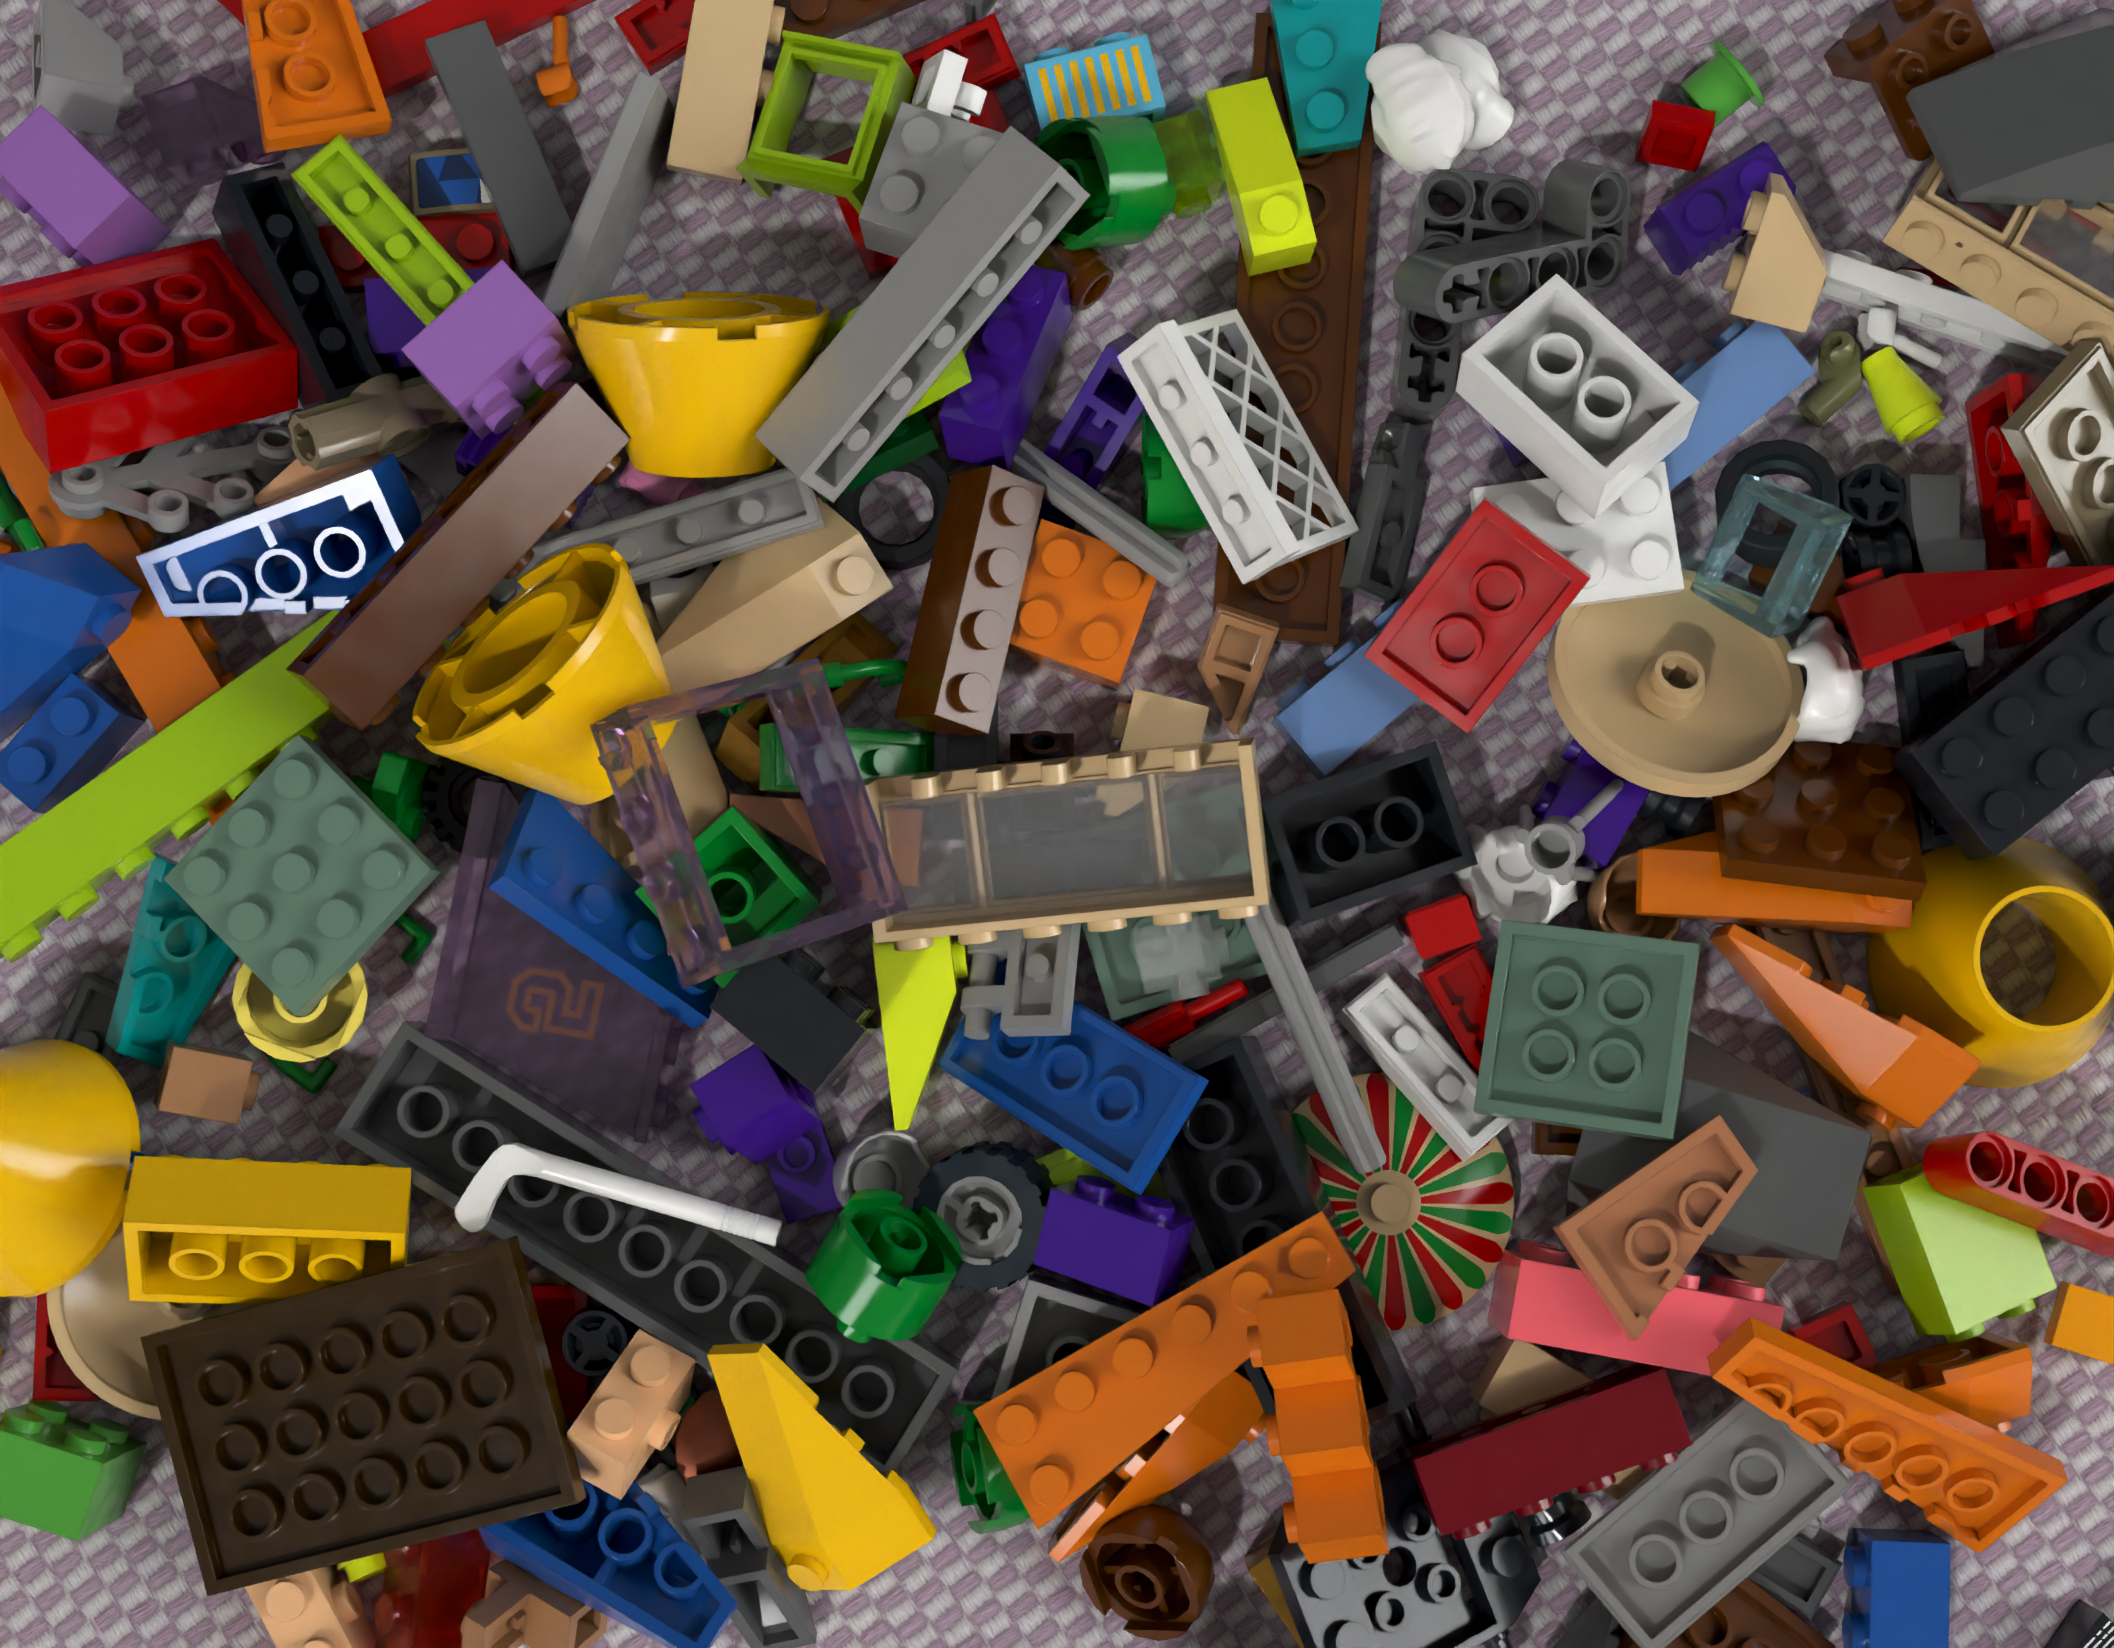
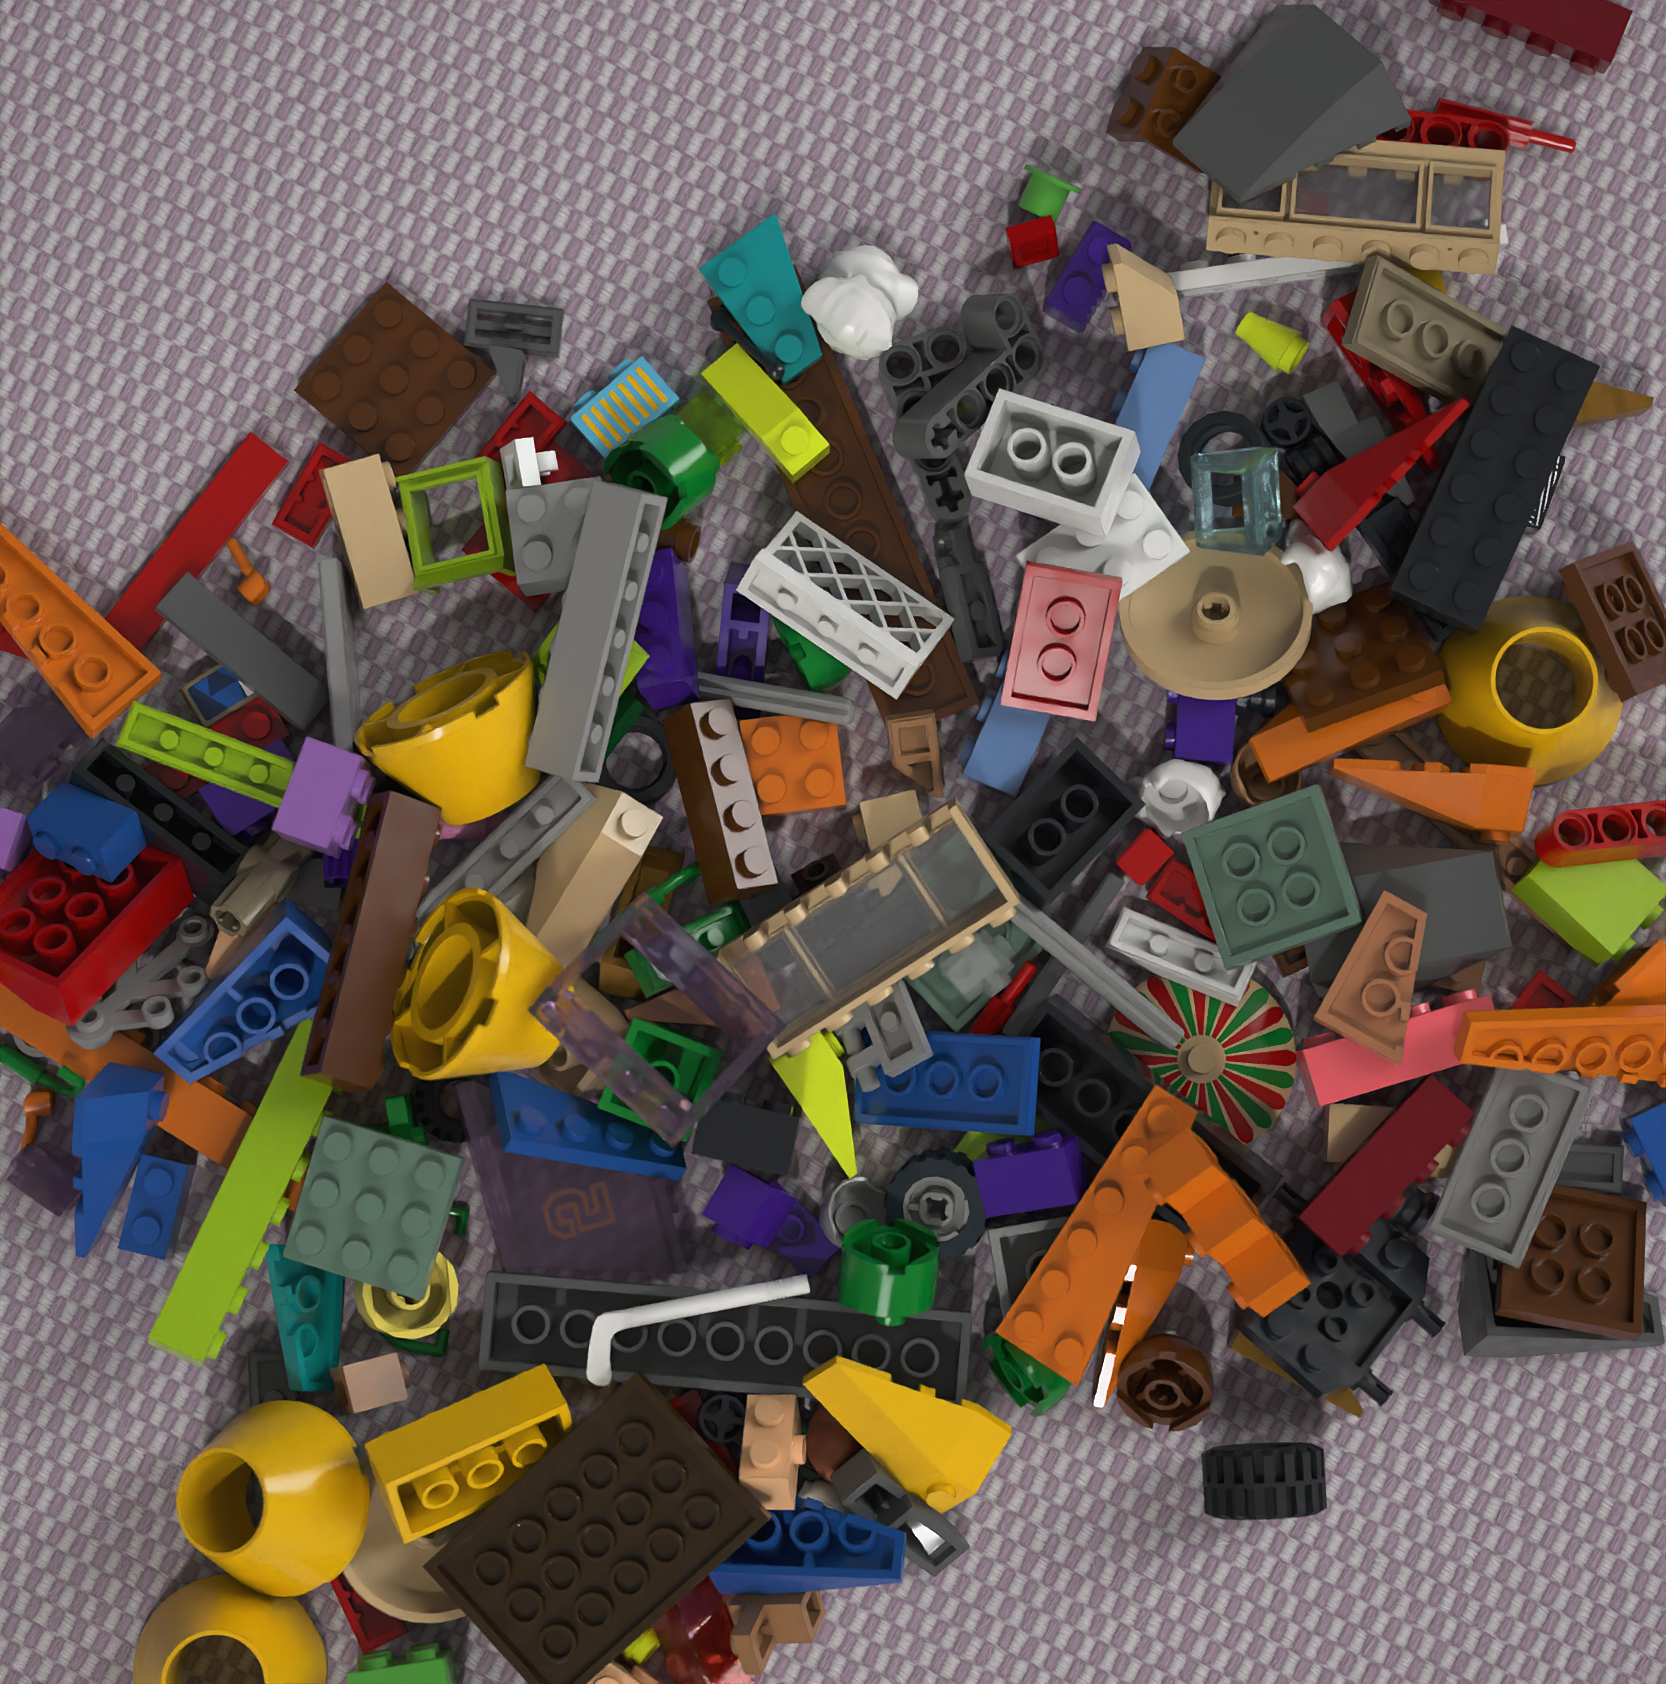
camera: 25 degrees left, 0 degrees up
(203, 259) = (86, 831): none -> blue brick
(1259, 43) = (720, 322): none -> black hinge
(1559, 840) = (1190, 763): light grey plant -> none
(1838, 377) = (1225, 348): olive arm -> none
(1877, 331) = (1236, 304): white hand -> none

